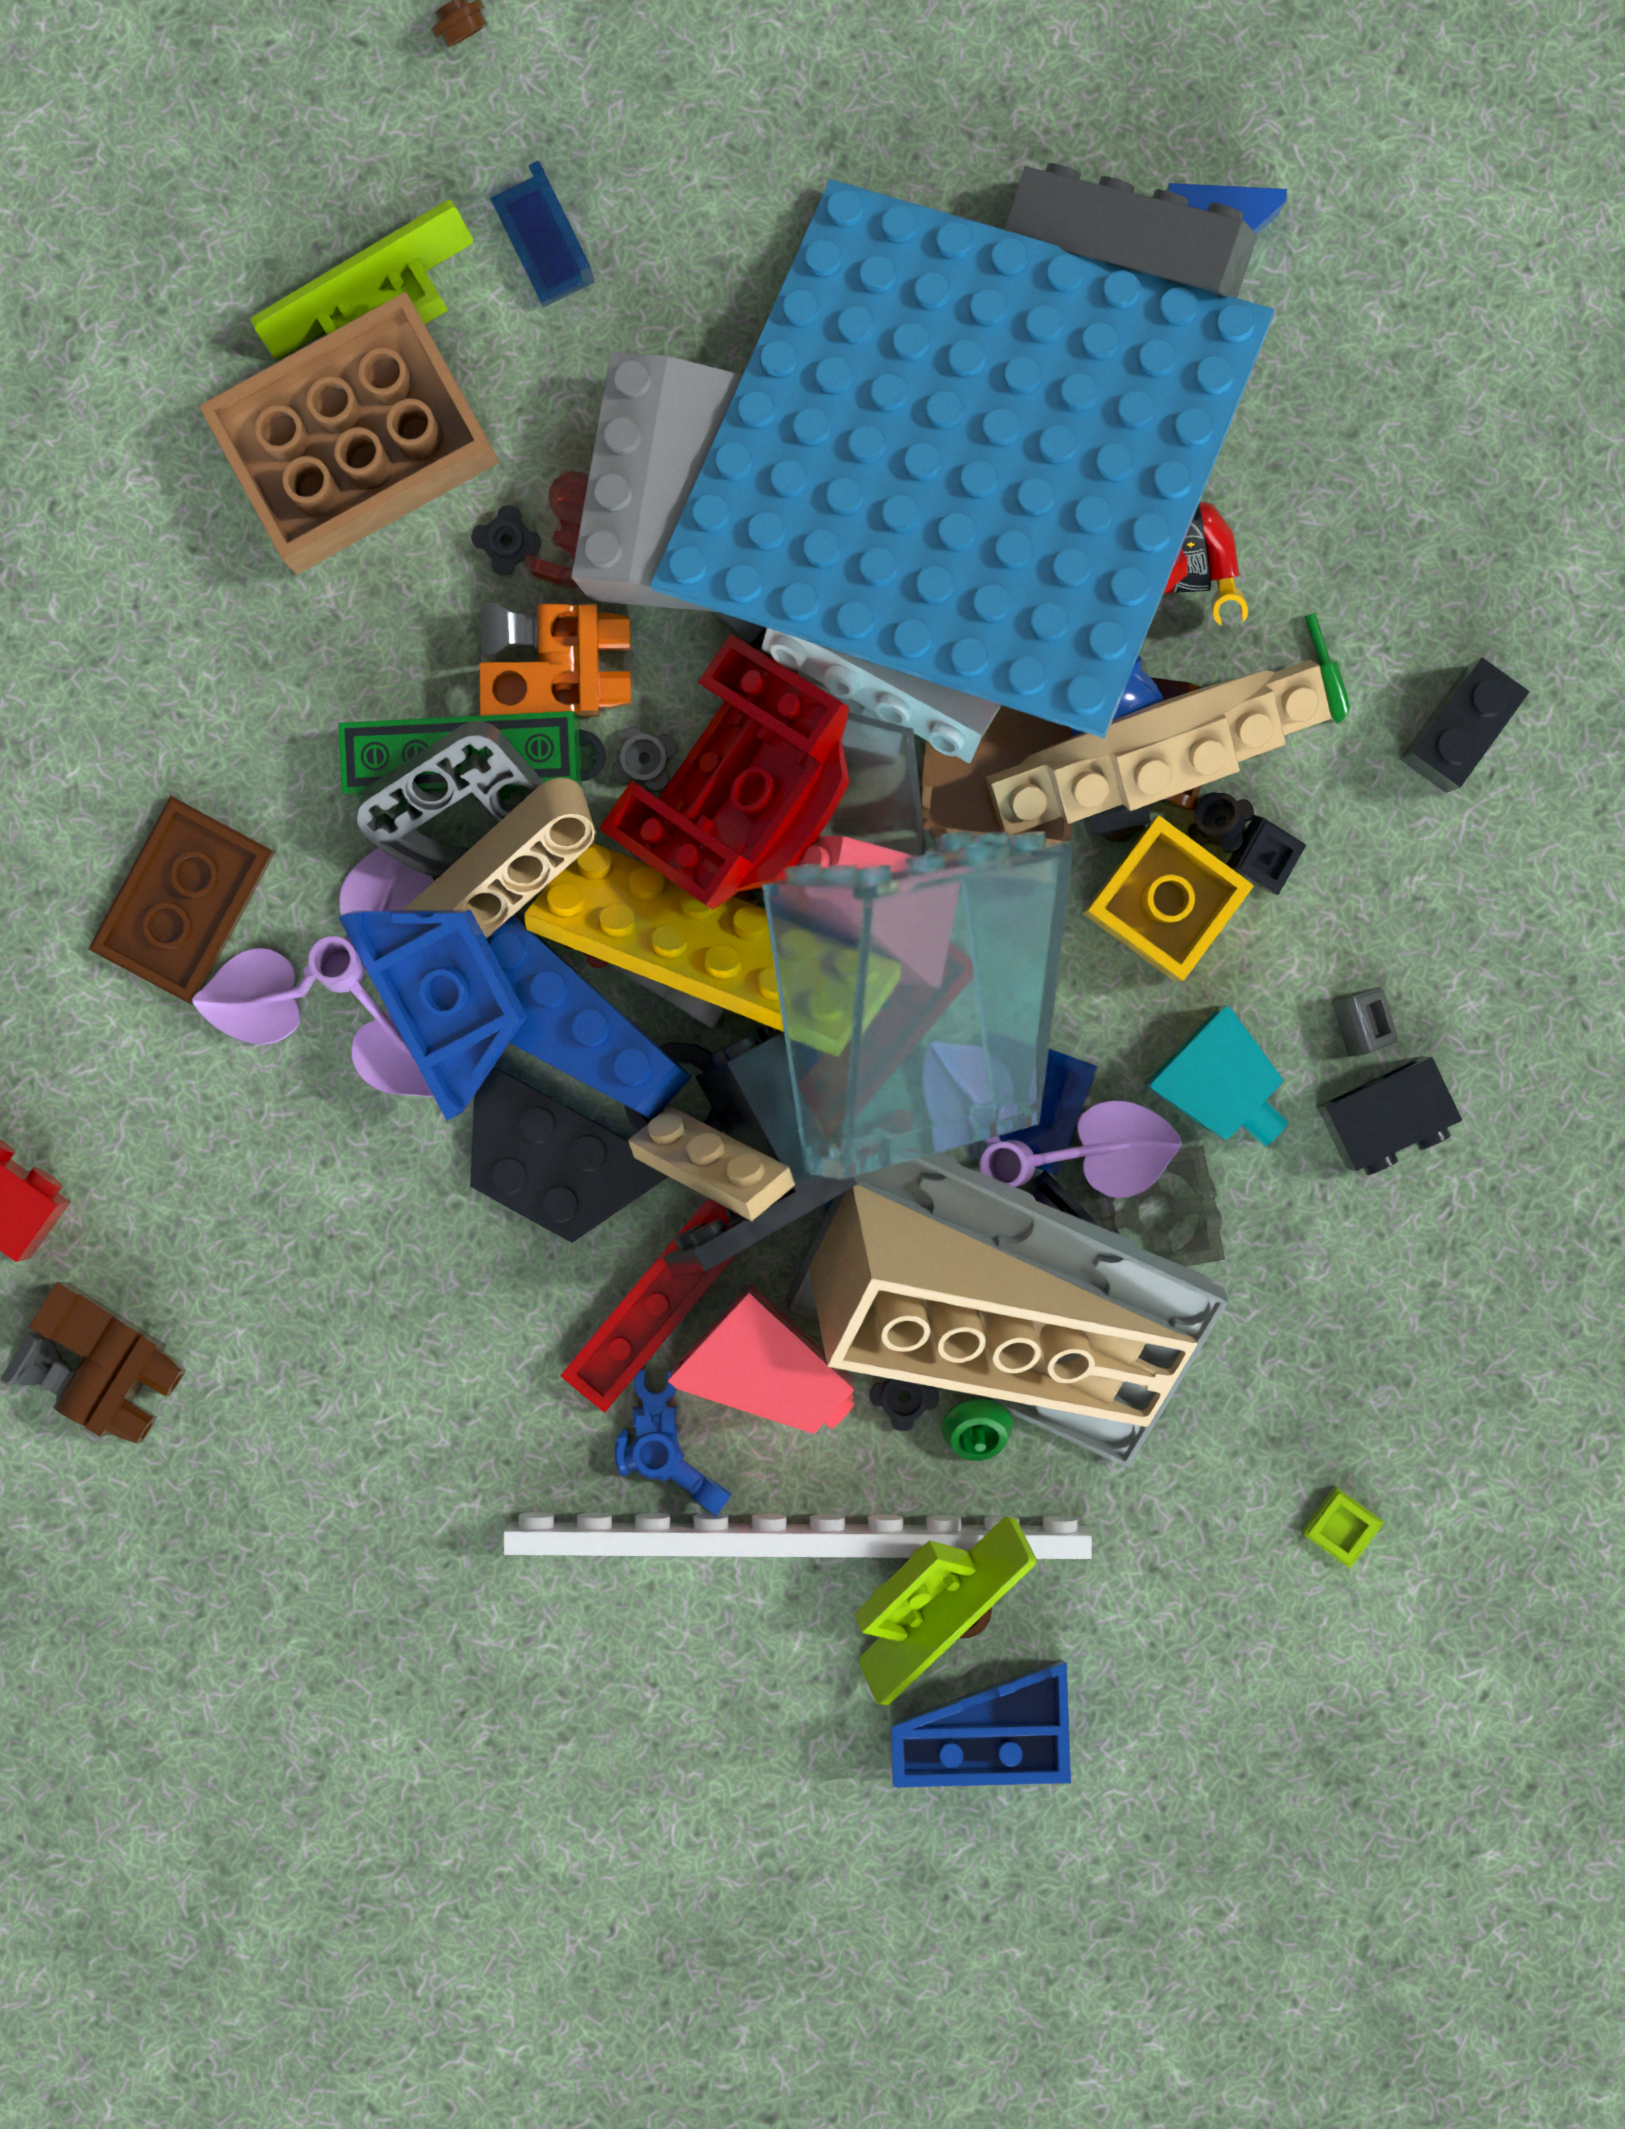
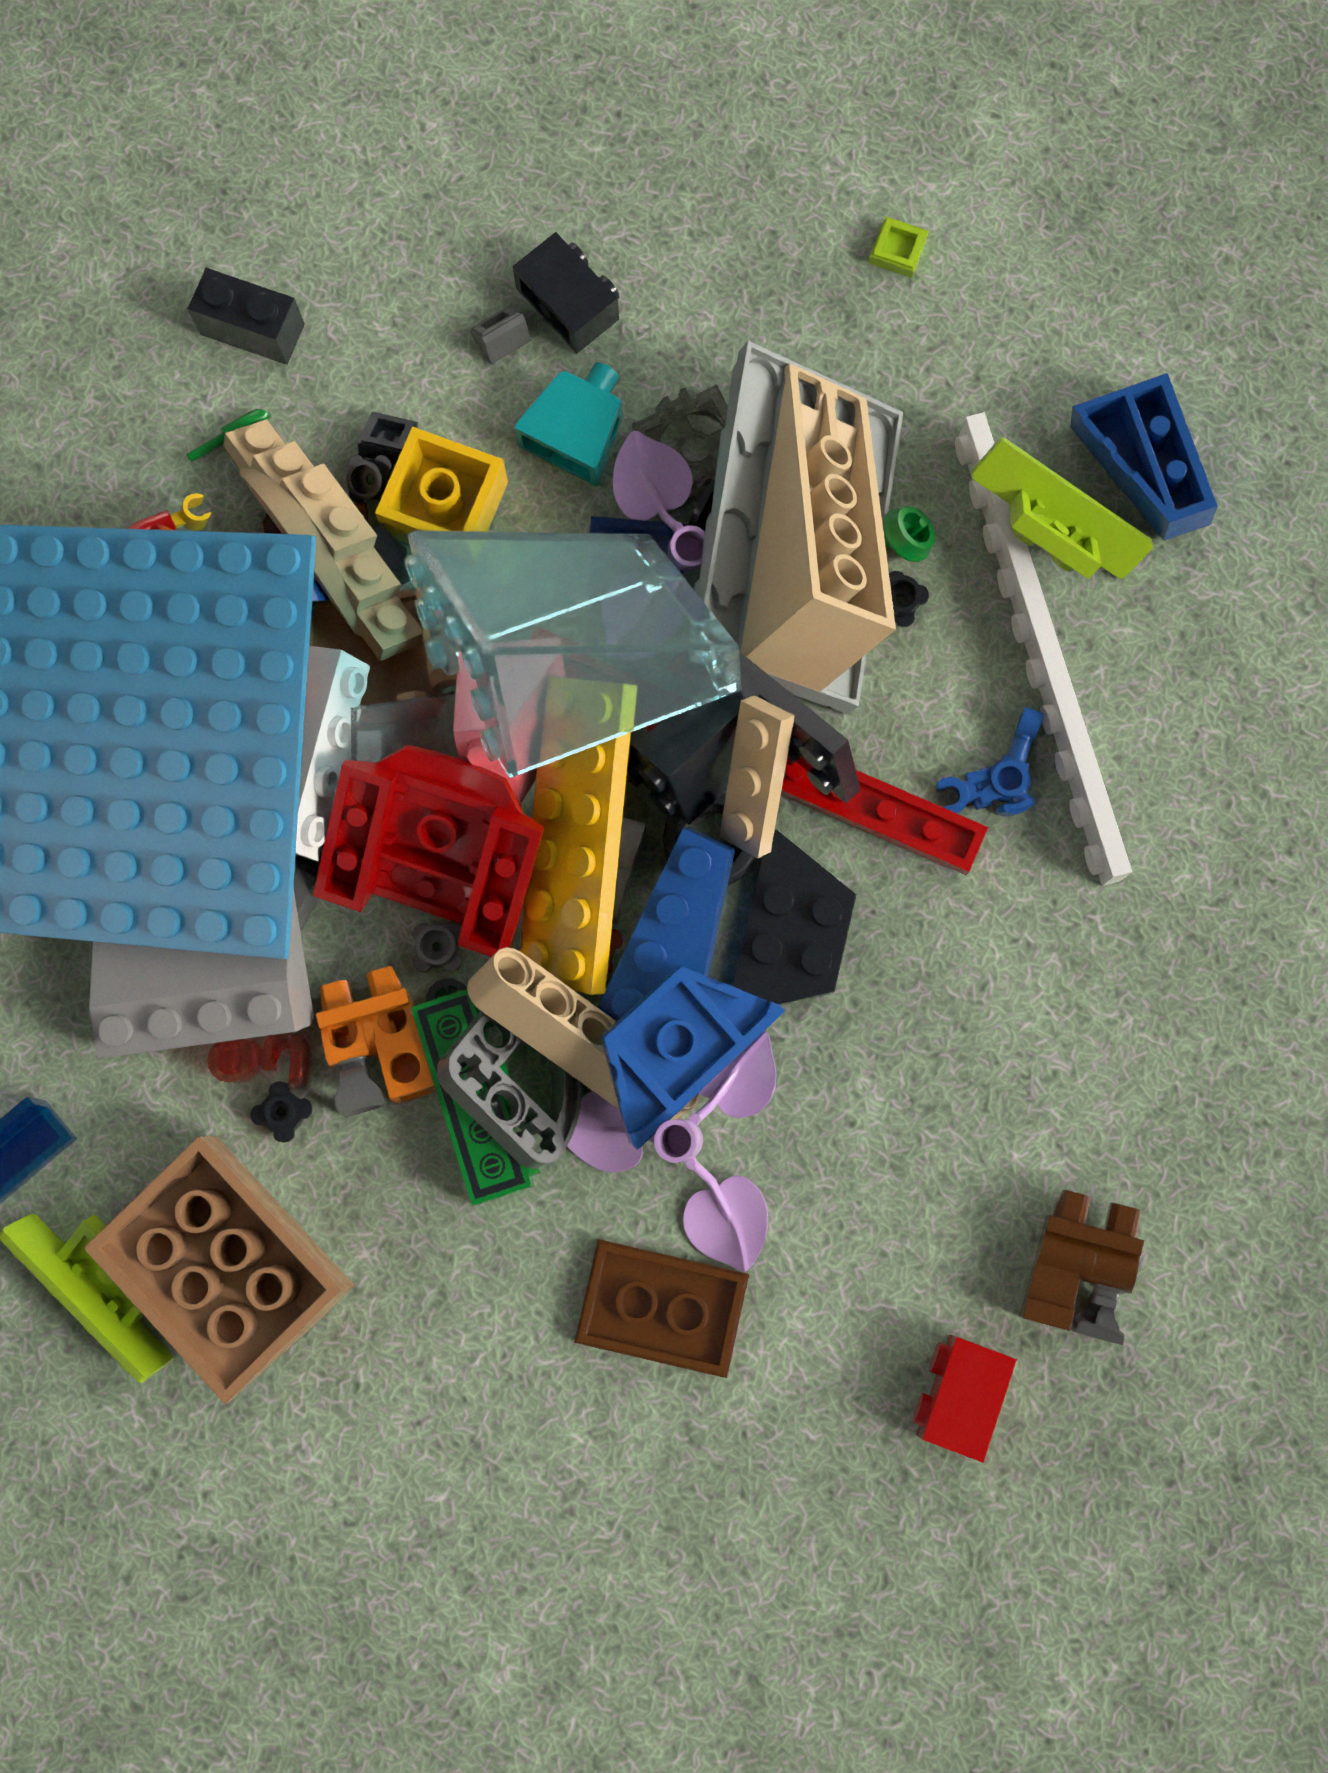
camera: 100 degrees left, 10 degrees down
(765, 1367) = (911, 704): coral slope -> none

